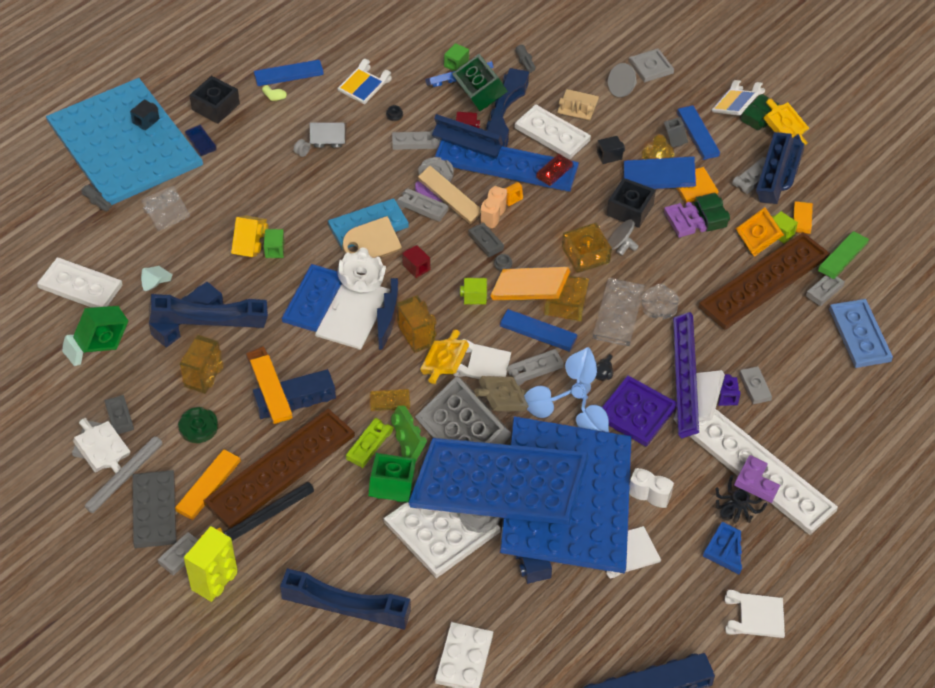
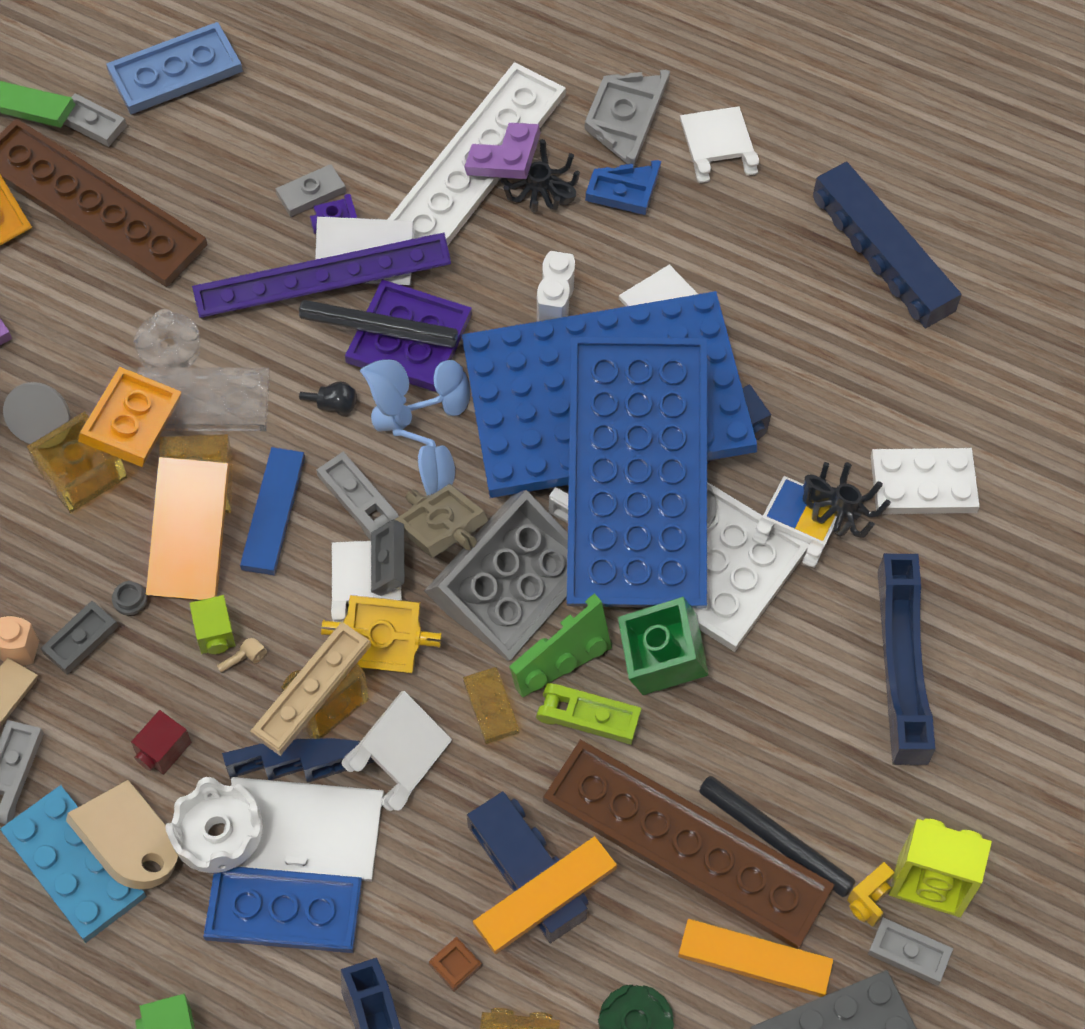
camera: 105 degrees left, 10 degrees up
(378, 353) = (403, 745): none -> white flag
(411, 304) = (310, 688): none -> tan tile
(456, 306) = (250, 648): none -> tan hand
(458, 577) = (792, 516): none -> flag
(458, 597) = (844, 501): none -> black animal
(481, 366) = (387, 557): none -> dark grey plate
(602, 265) = (130, 416): none -> light orange plate
(642, 391) = (378, 323): none -> black axle
(788, 563) = (625, 111): none -> light grey wing

